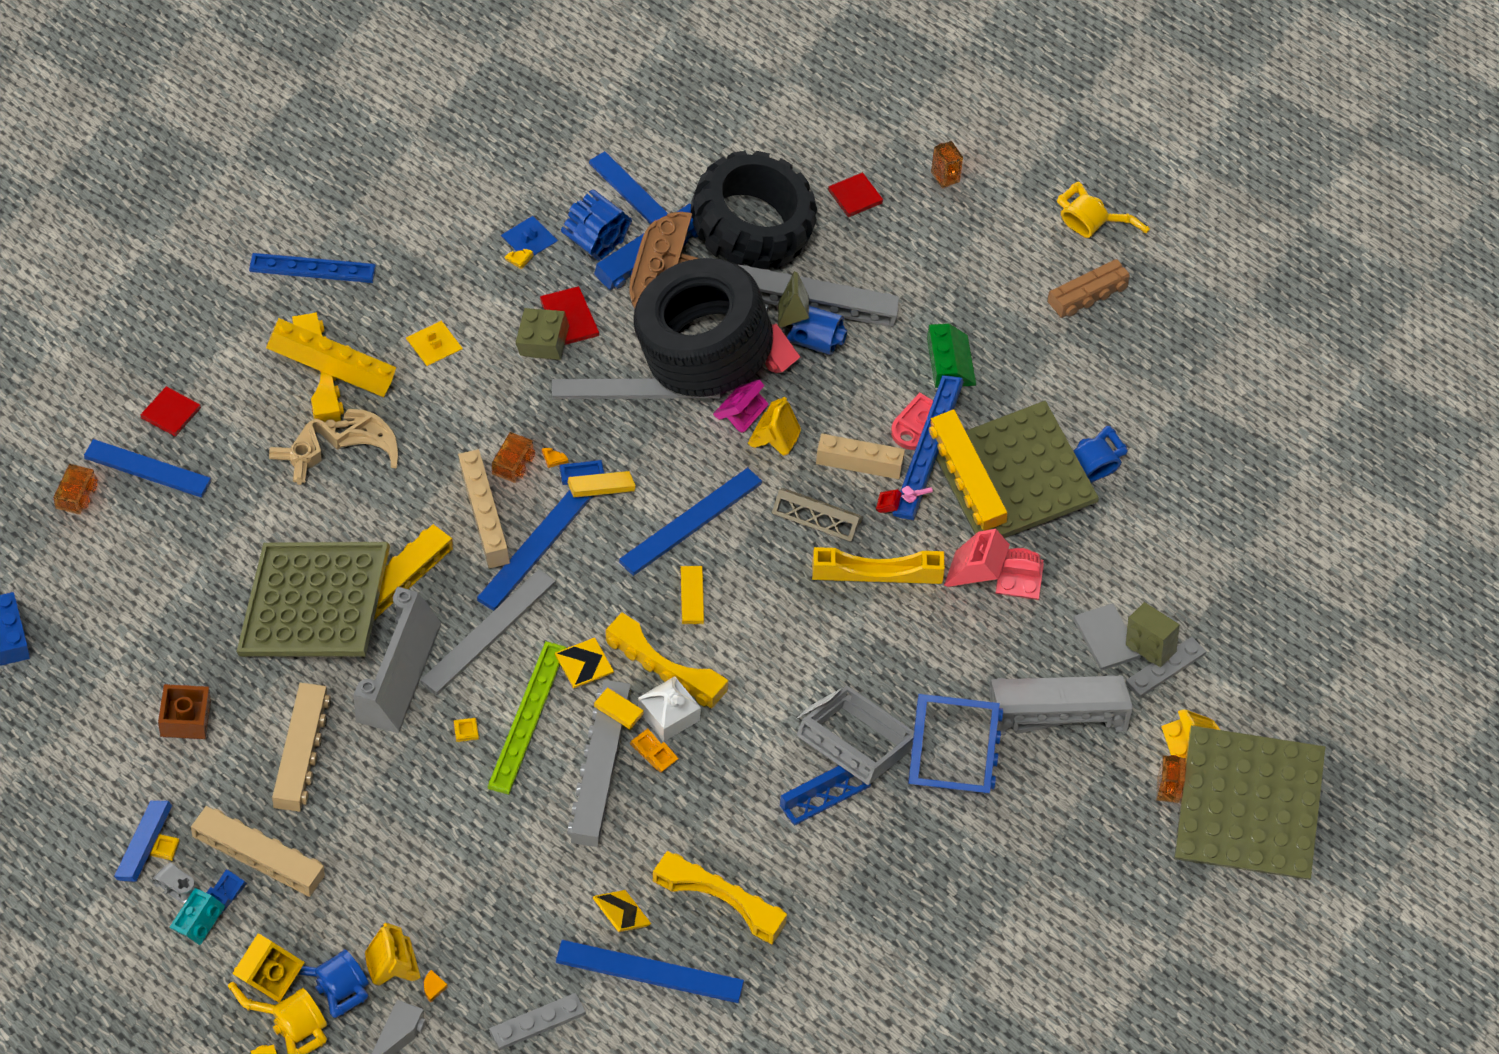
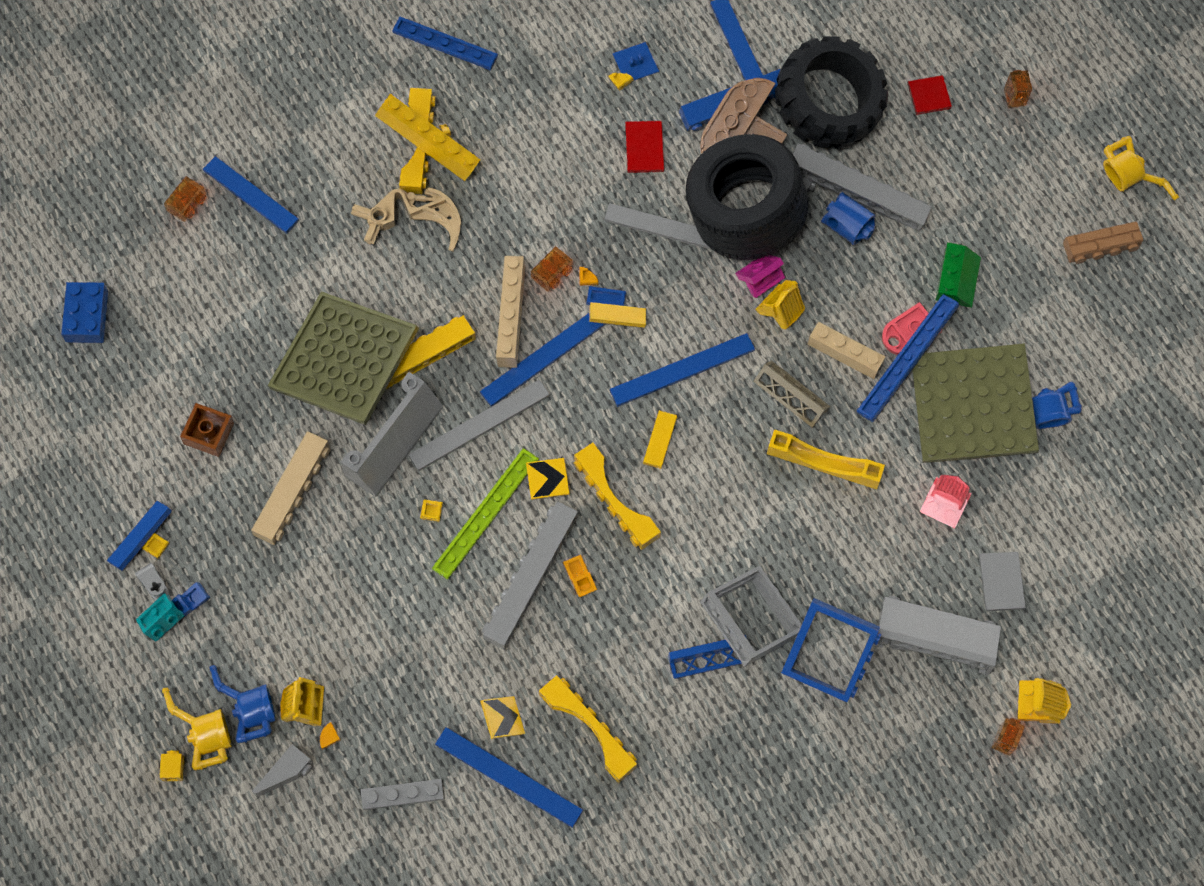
camera: 20 degrees right, 15 degrees up
(170, 411) = (286, 147): red tile -> none
(258, 851) = (226, 573): tan brick -> none
(268, 967) = (196, 686): yellow piece -> none
(434, 343) = (523, 141): yellow piece -> none
(542, 333) = (613, 159): olive brick -> none
(596, 225) = (695, 71): blue piece -> none
(618, 708) = (559, 532): yellow tile -> none
(669, 708) = (603, 542): white piece -> none
(781, 353) = (810, 234): coral slope -> none
(793, 303) = (834, 193): olive slope -> none
(820, 702) = (730, 576): white sticker -> none
(888, 501) = (856, 399): red tile -> none
(911, 495) = (876, 401): bright pink hand -> none
(968, 470) = (932, 393): yellow brick -> none
(978, 559) = (912, 481): coral slope -> none
(1152, 634) = (1038, 597): olive brick -> none
(1153, 675) = (1043, 625): light grey plate -> none
(1250, 802) = (1069, 780): olive plate -> none

